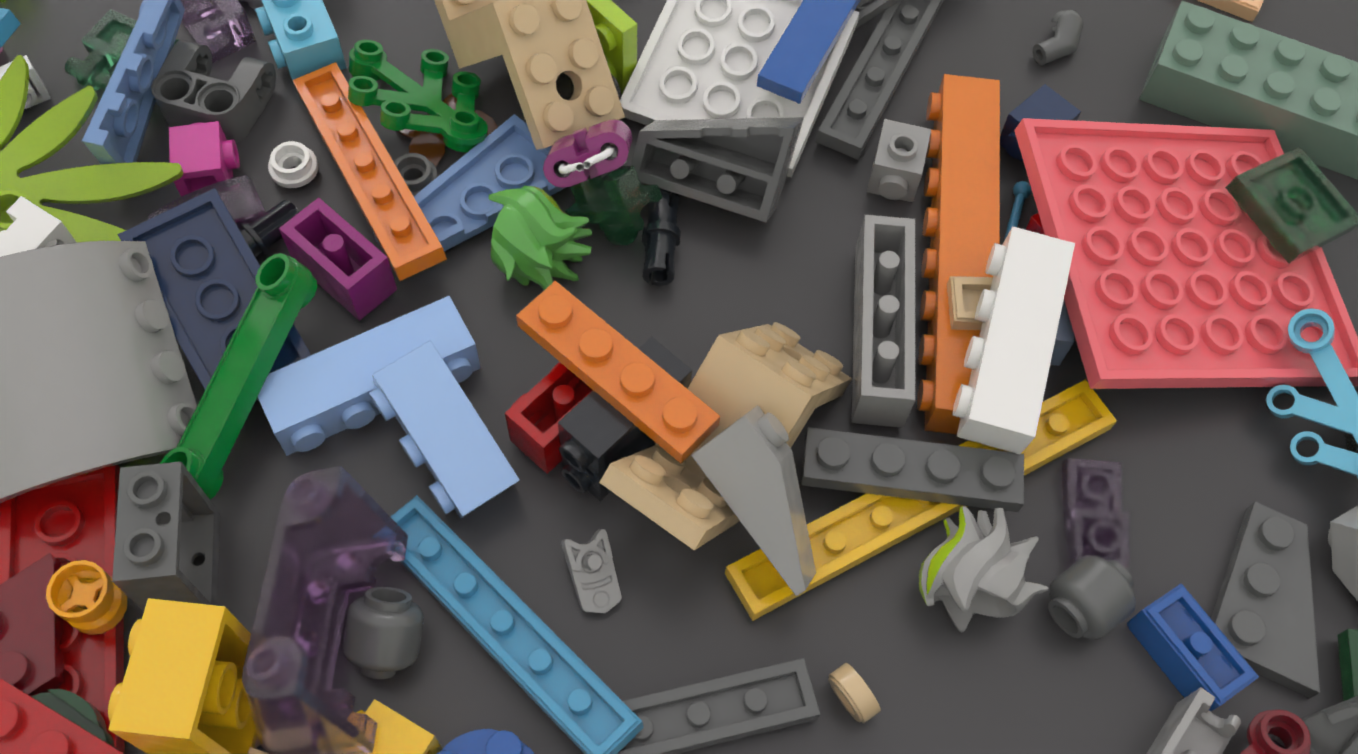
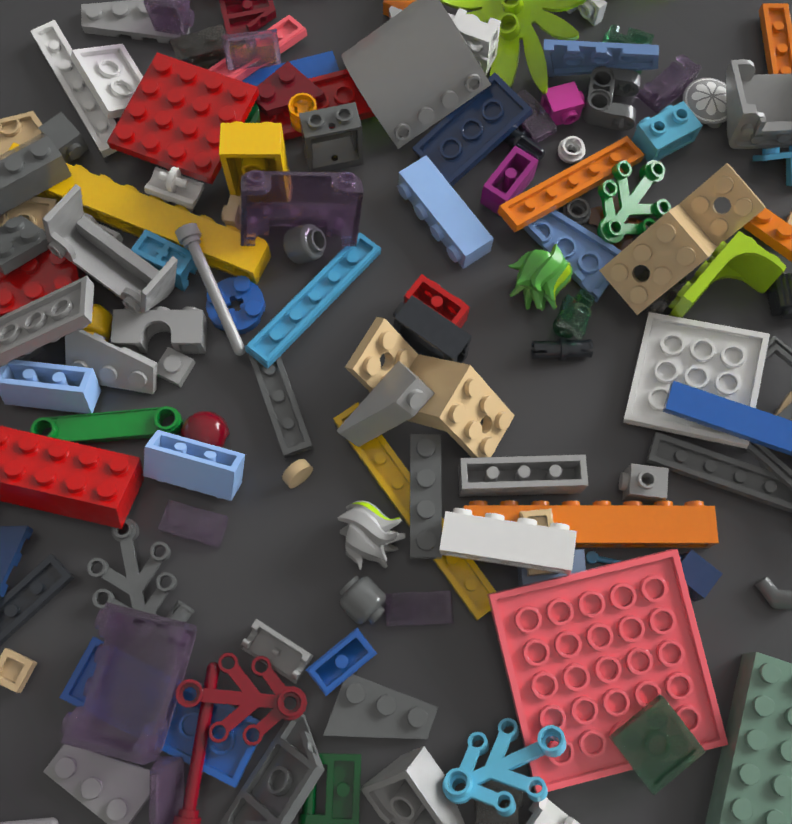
camera: 85 degrees right, 10 degrees up
(281, 292) = (477, 155): green piece -> none
(442, 430) = (411, 249): light blue brick -> none
(588, 153) = (596, 292): magenta piece -> none
(593, 572) = (347, 338): light grey piece -> none
(618, 371) = (444, 319): orange plate -> none
(720, 161) = (614, 371): dark grey wedge -> none

